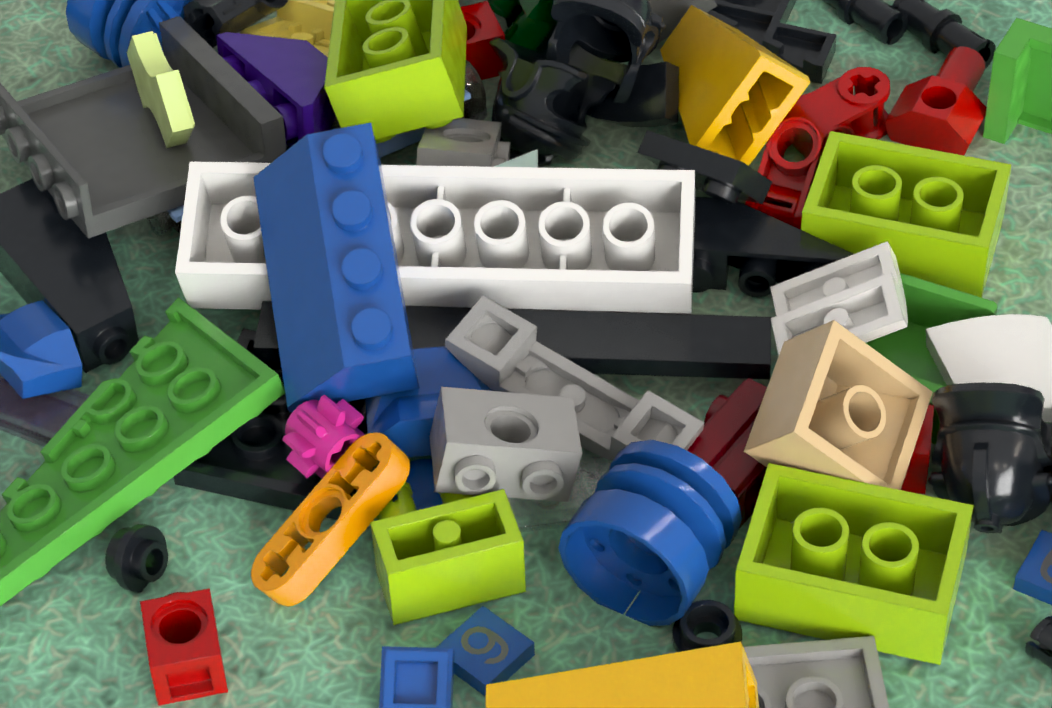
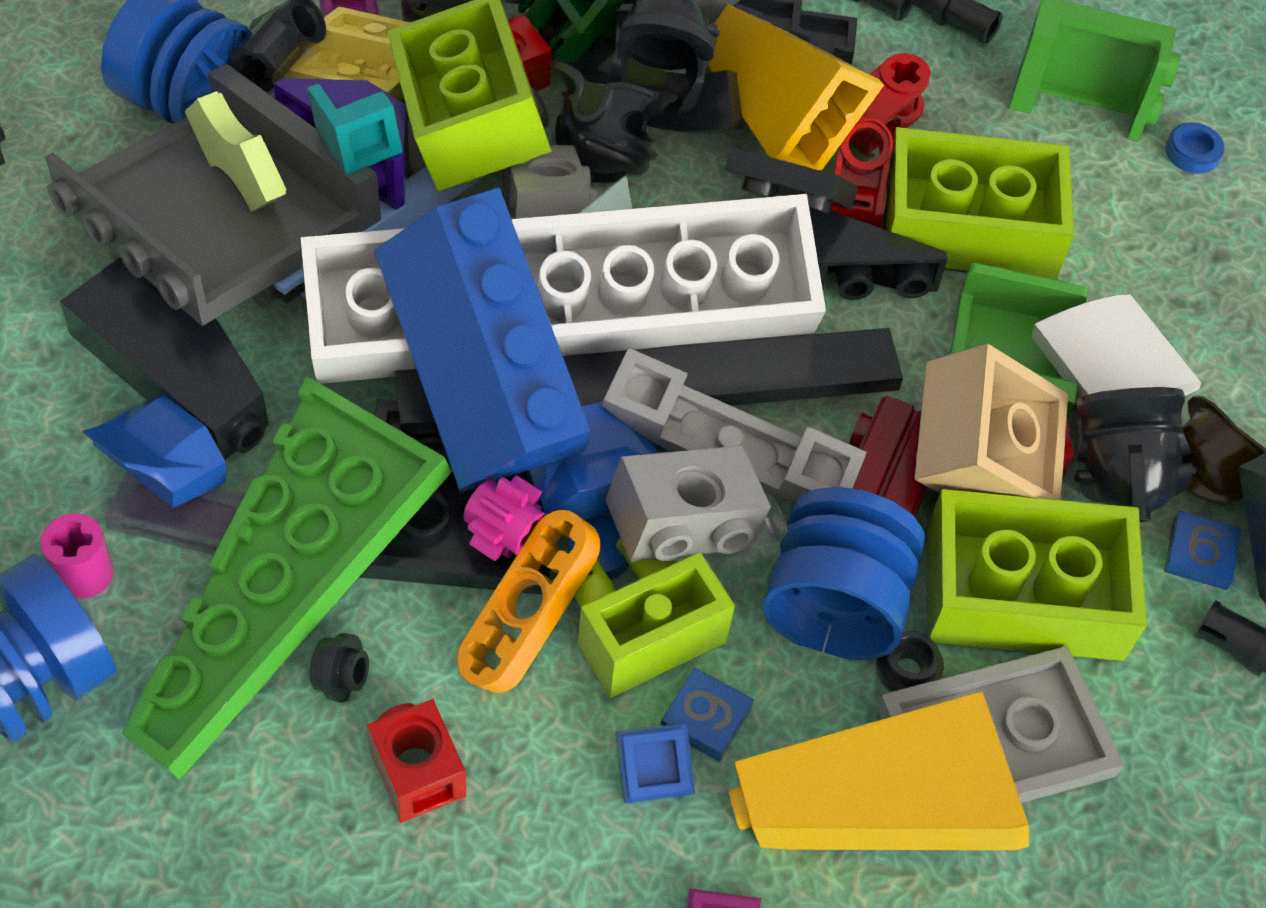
camera: 20 degrees left, 10 degrees up
(272, 73) = (358, 131): none -> teal panel
(856, 292) = (951, 308): white slope -> none
(942, 108) = (971, 87): red piece -> none

